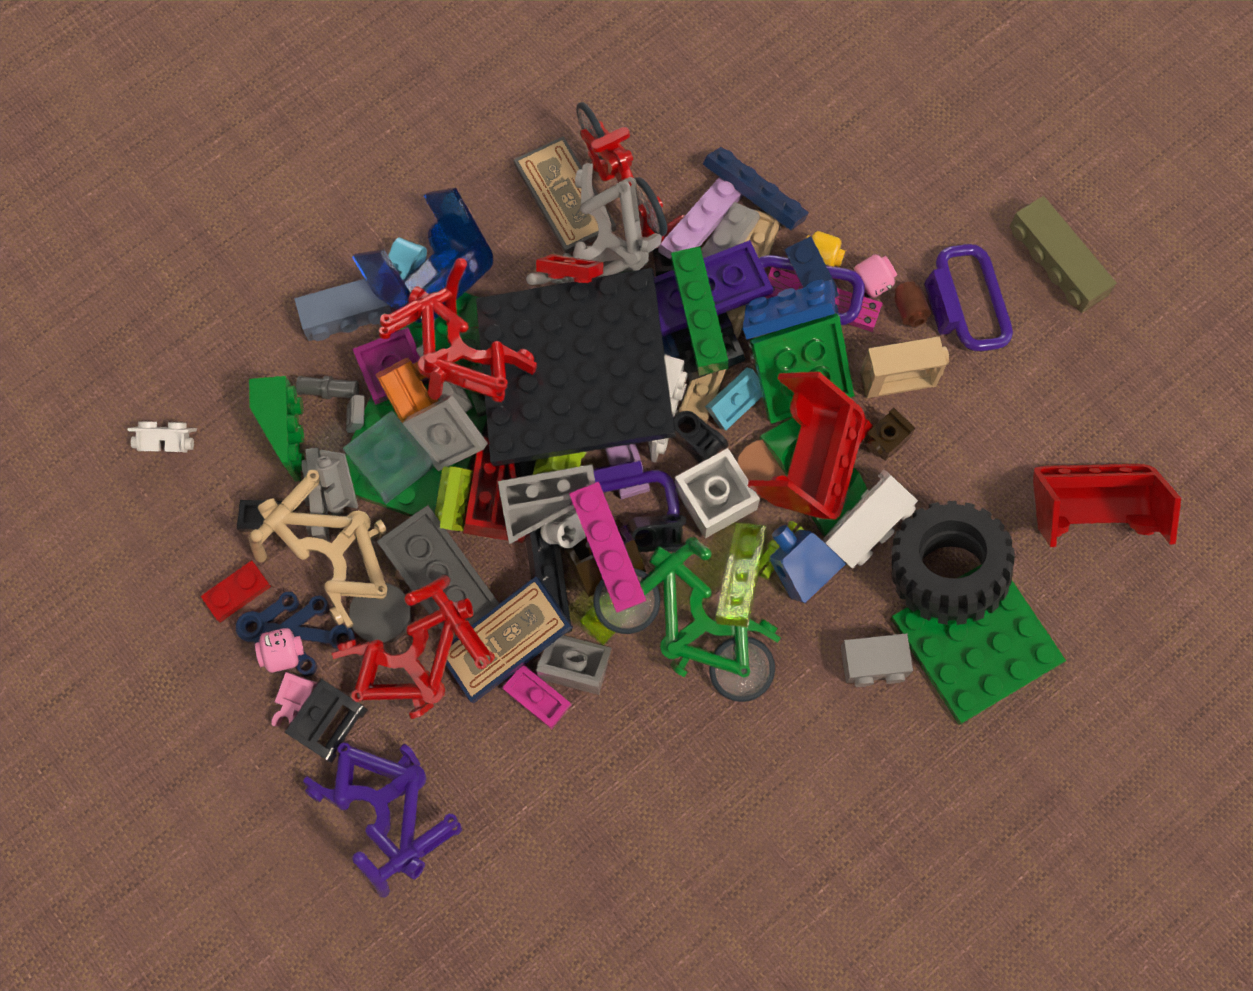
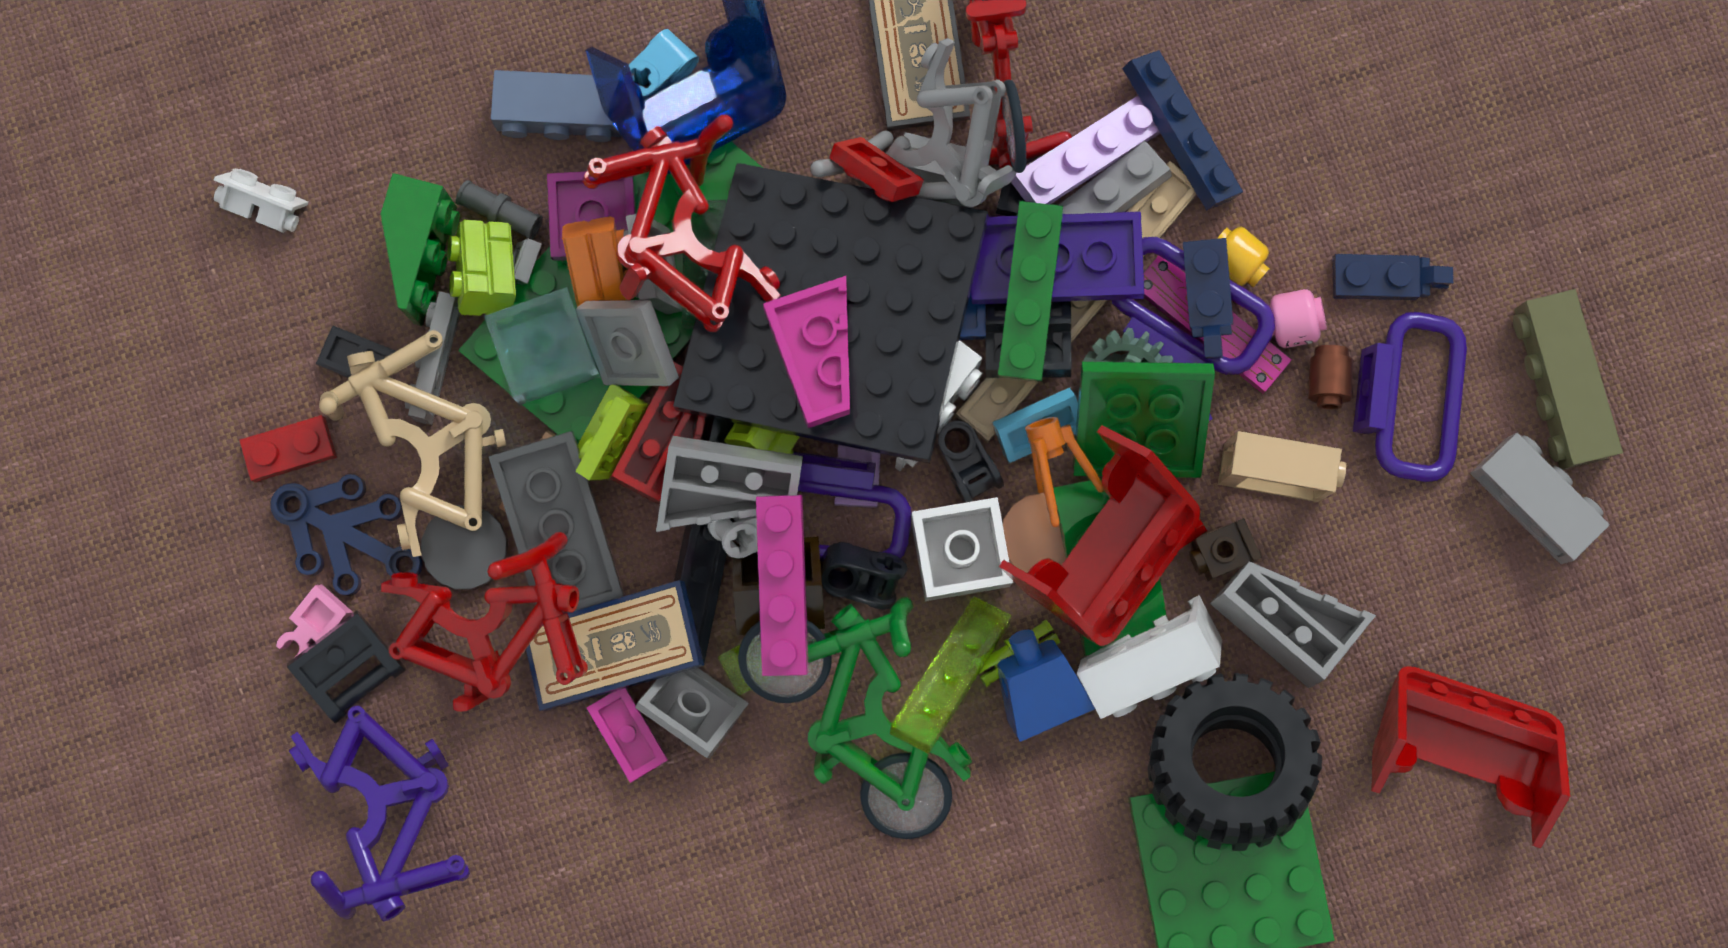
camera: 15 degrees right, 10 degrees up
(278, 650) = (315, 554): bright pink head -> none
(328, 422) = (483, 267): none -> lime brick
(335, 473) = (465, 340): light grey hinge -> none
(571, 388) = (813, 345): none -> dark pink wing
(745, 403) = (1046, 442): none -> orange plant
(789, 308) = (1152, 336): blue plate -> none
(876, 659) = (1086, 848): light grey brick -> none
(921, 233) = (1387, 277): none -> dark blue hinge
(950, 463) = (1289, 622): none -> light grey wedge
(1076, 331) = (1540, 497): none -> light grey brick

